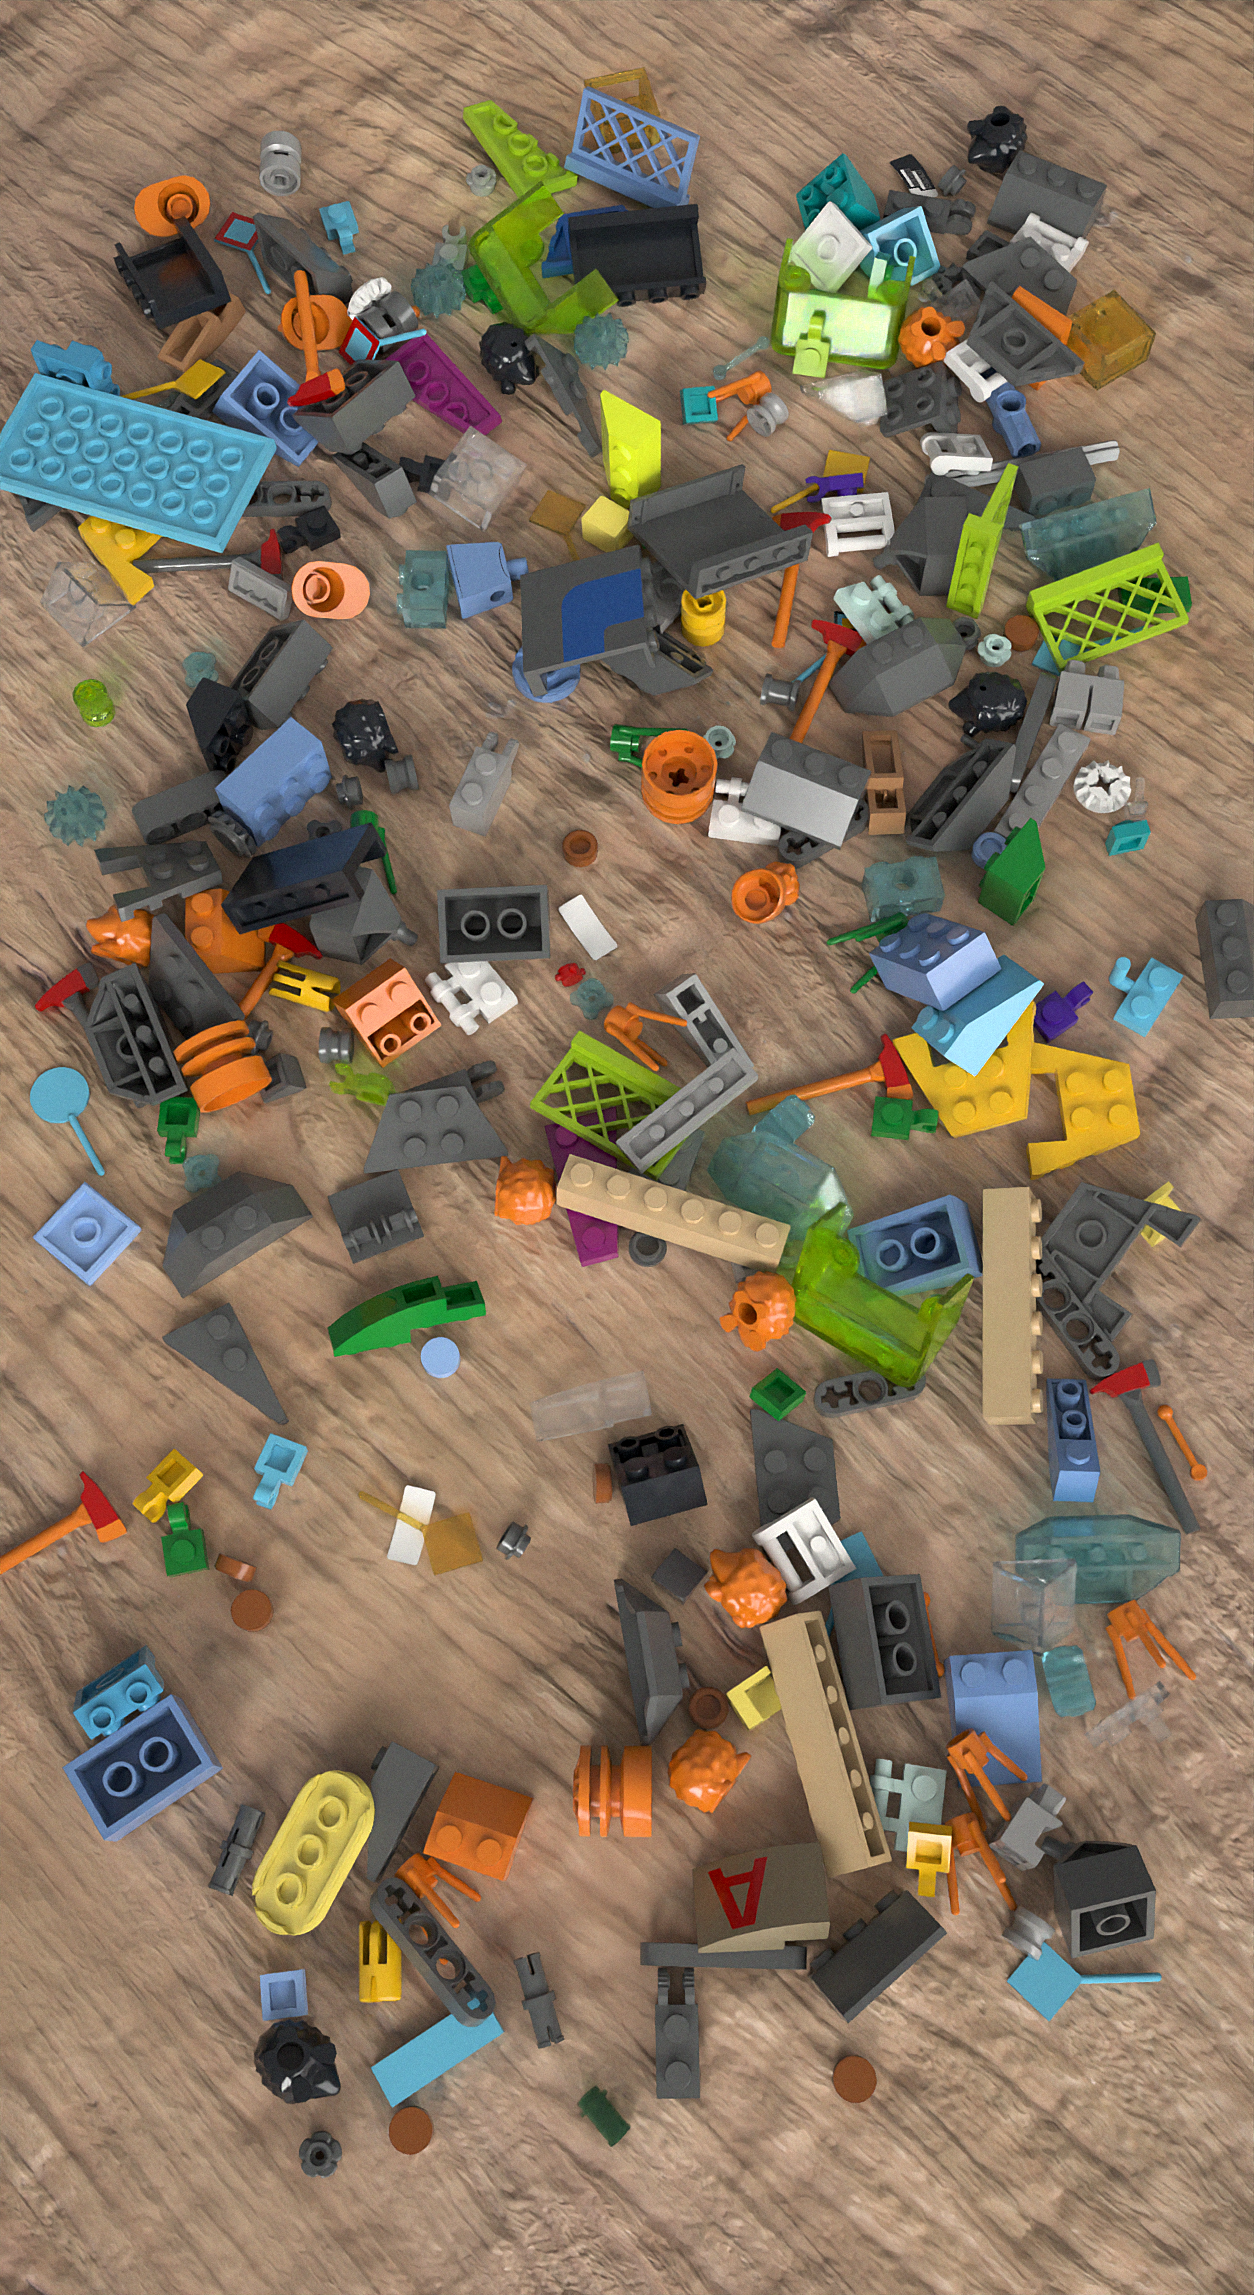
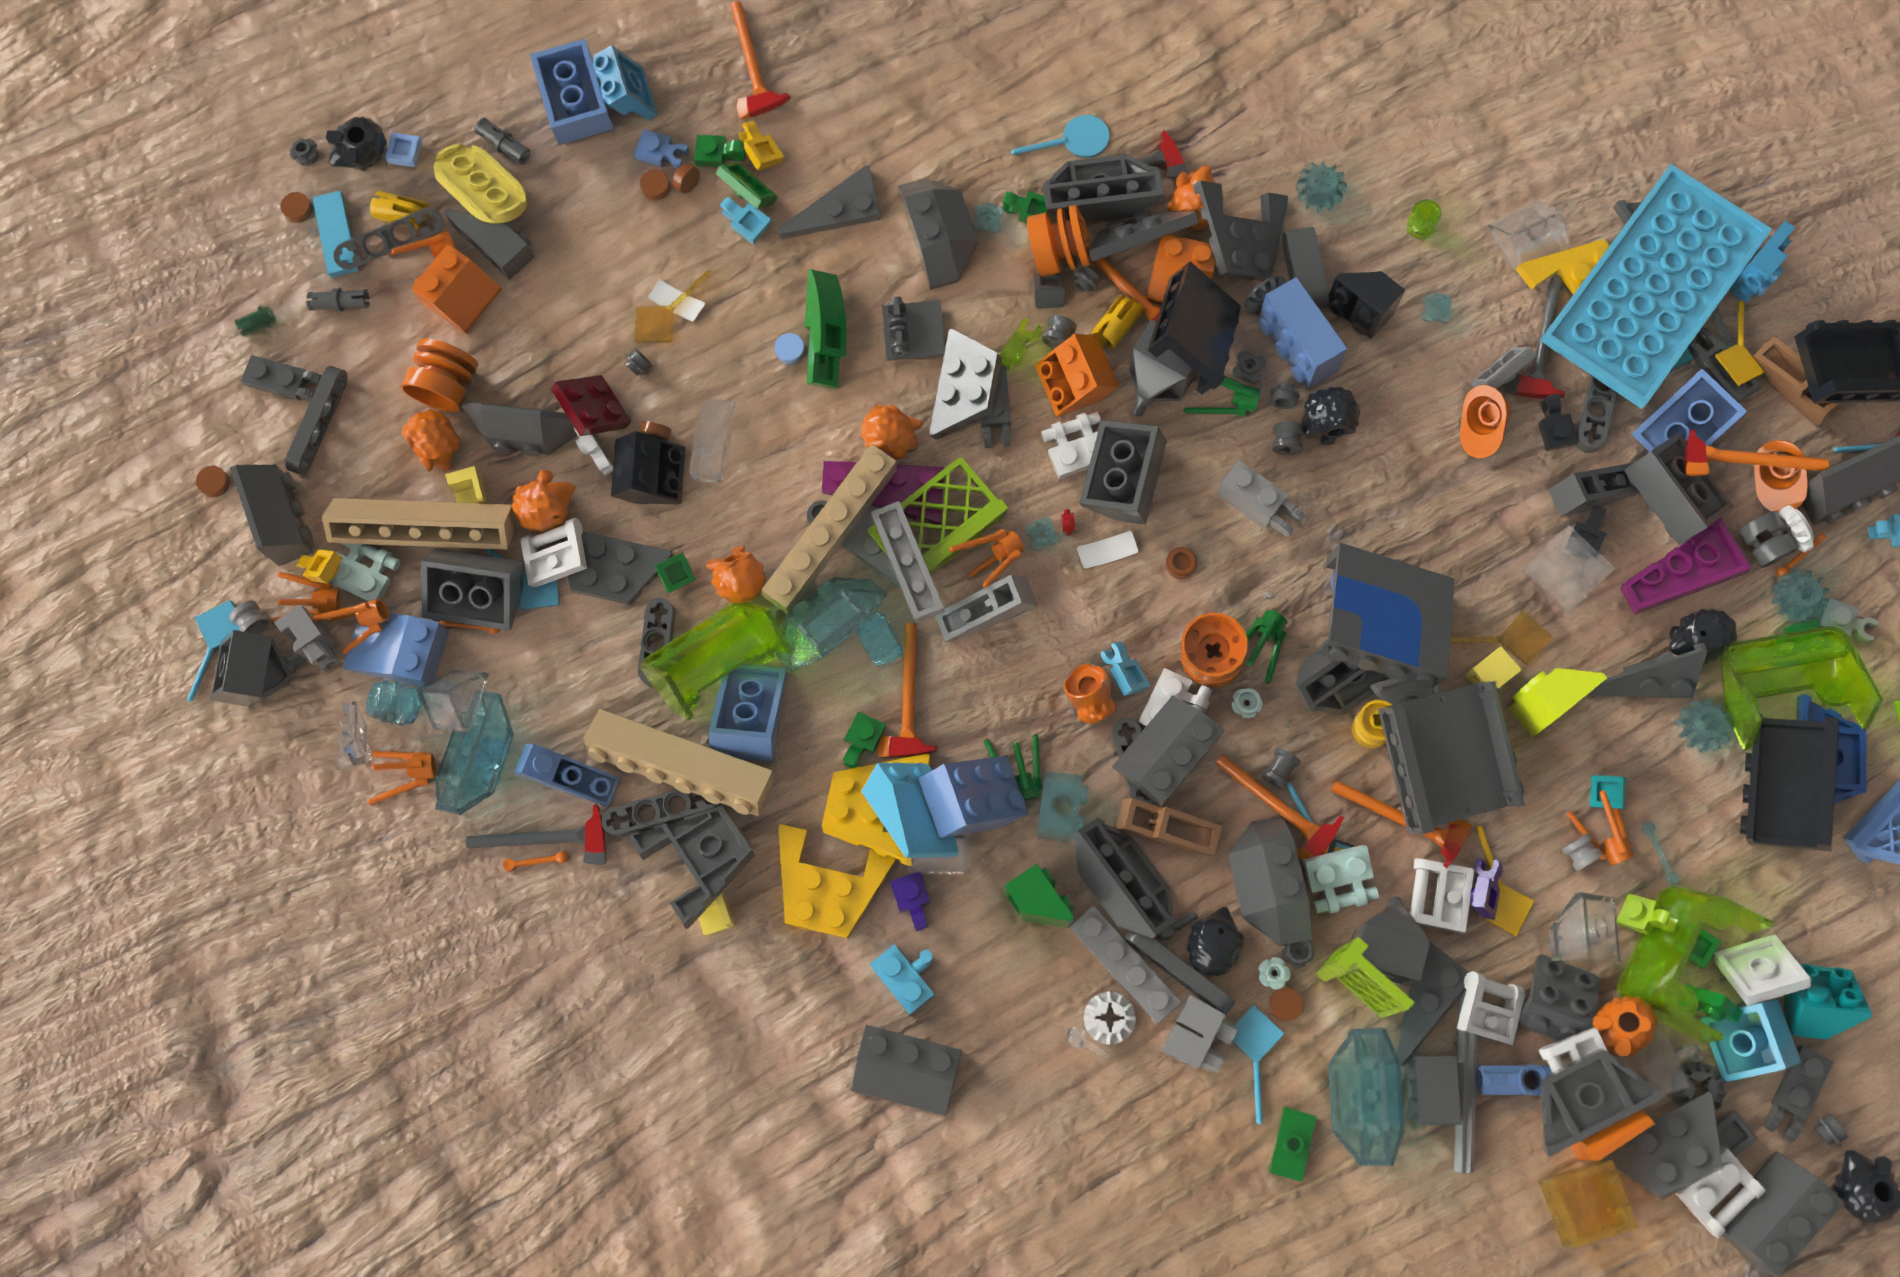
camera: 110 degrees right, 5 degrees up
(87, 1233) = (967, 133): light blue tile -> none
(199, 1627) = (658, 148): none -> medium blue plate
(227, 1482) = (746, 185): none -> green plate
(280, 672) = (1411, 362): dark grey slope -> none
(364, 344) = (1745, 512): medium azure piece -> none
(424, 571) = (1450, 506): clear light blue brick -> none
(483, 576) = (1467, 552): medium blue torso -> none
(595, 1572) = (590, 405): none -> dark red plate
(645, 1561) = (590, 445): none -> white plate
(678, 1576) = (572, 464): dark grey slope -> none
(708, 1708) = (479, 457): dark orange tile -> none
(728, 863) = (1126, 672): none -> medium azure plate
(761, 1899) = (336, 449): dark tan slope -> none
(914, 176) = (1849, 1097): sticker -> none
(985, 847) = (1079, 896): light blue tile -> none
(1099, 580) = (1312, 1087): lime fence -> none
(1127, 837) = (1052, 1016): teal plate -> none

